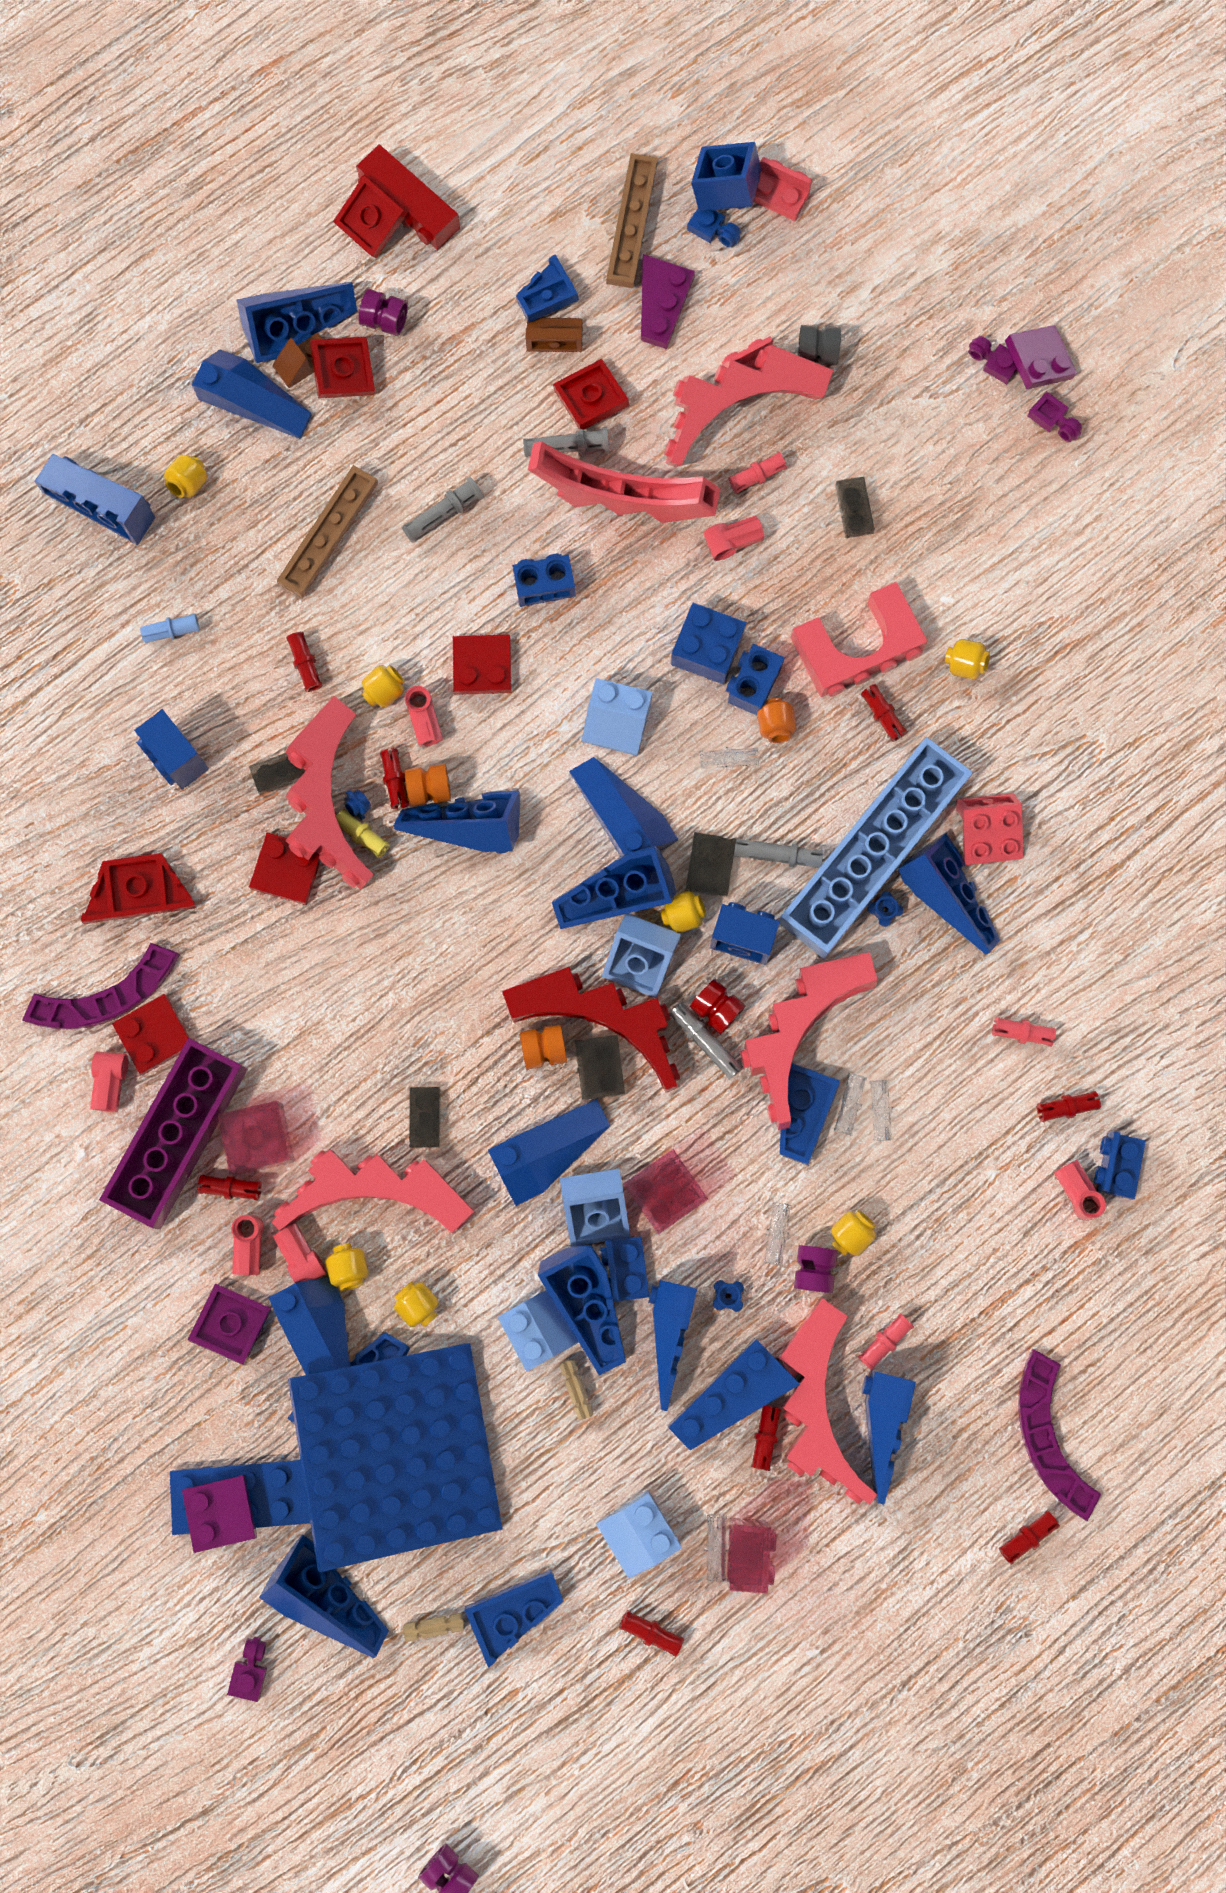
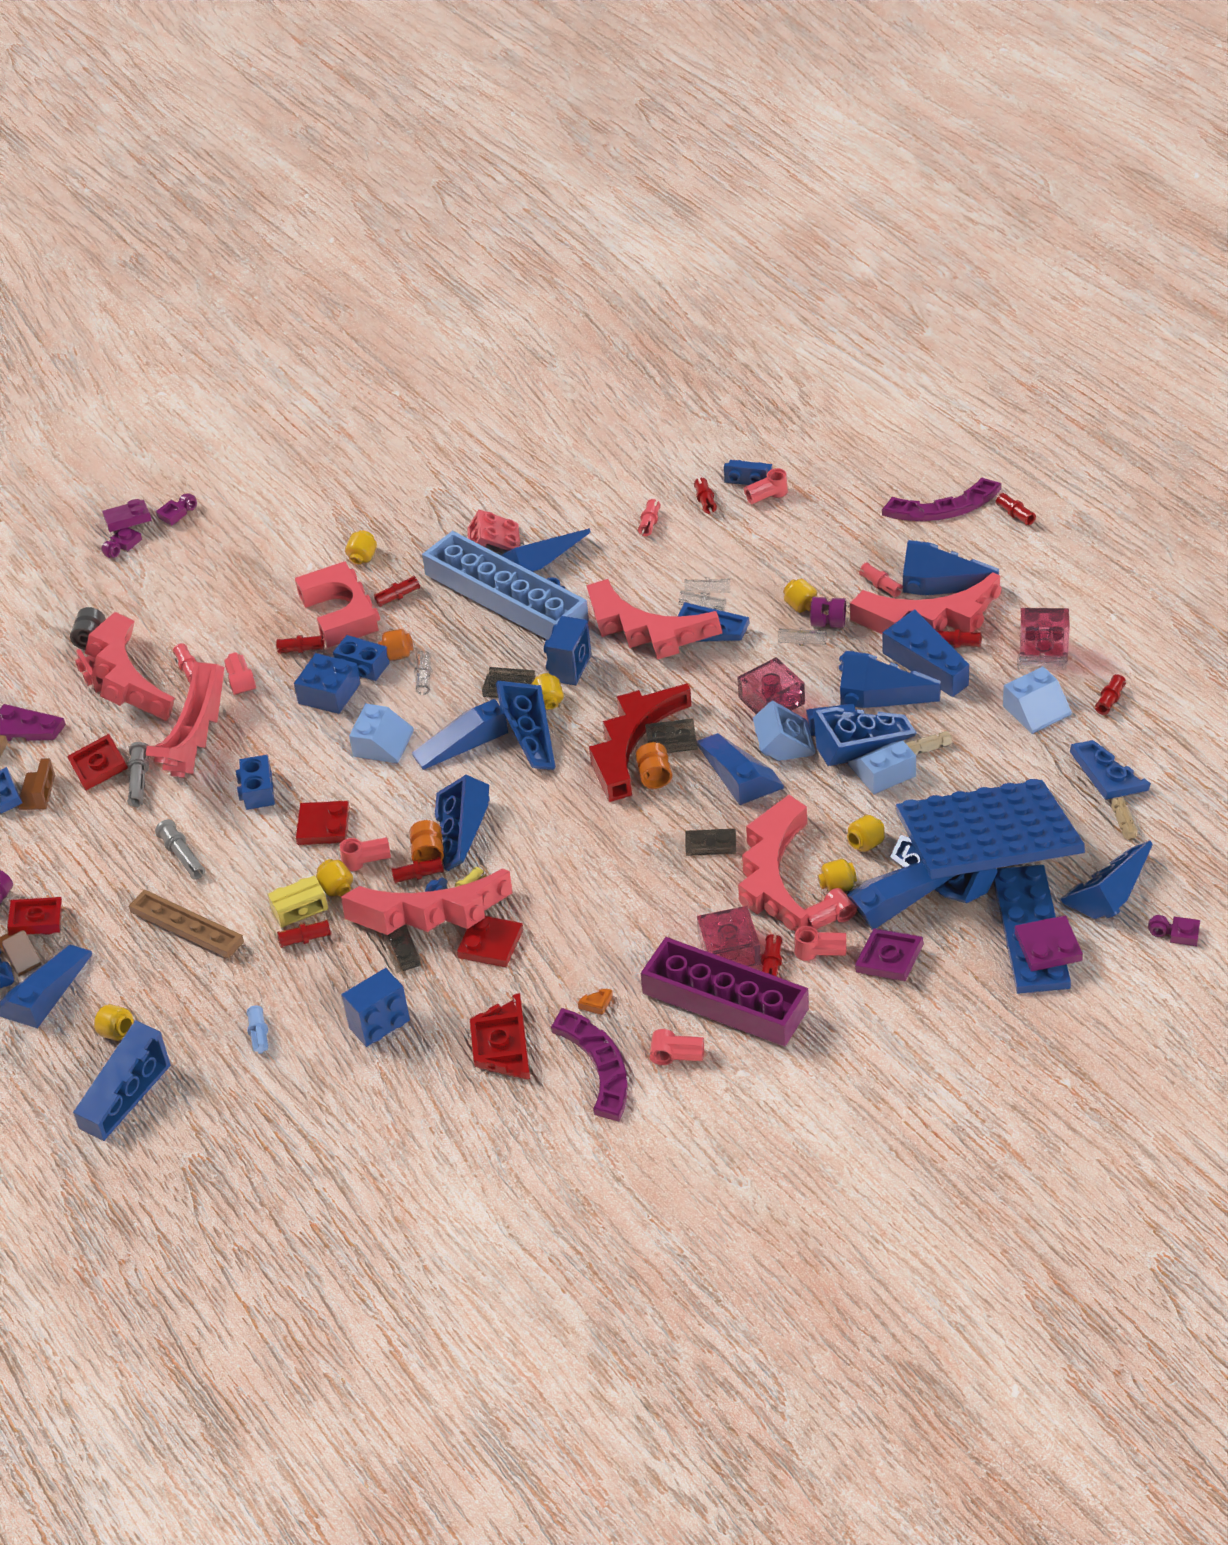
camera: 85 degrees left, 35 degrees down
(152, 1034) = (633, 1023): red plate -> none
(189, 991) = (596, 1002): none -> orange tile
(350, 648) = (297, 901): none -> light yellow brick
(641, 955) = (580, 714): light blue slope -> none
(705, 1040) = (655, 676): light grey pin -> none
(717, 1006) = (624, 669): red wheel -> none
(772, 852) = (505, 638): light grey pin -> none
(787, 603) = (300, 644): none -> red pin
(854, 507) = (227, 610): clear smoke plate -> none

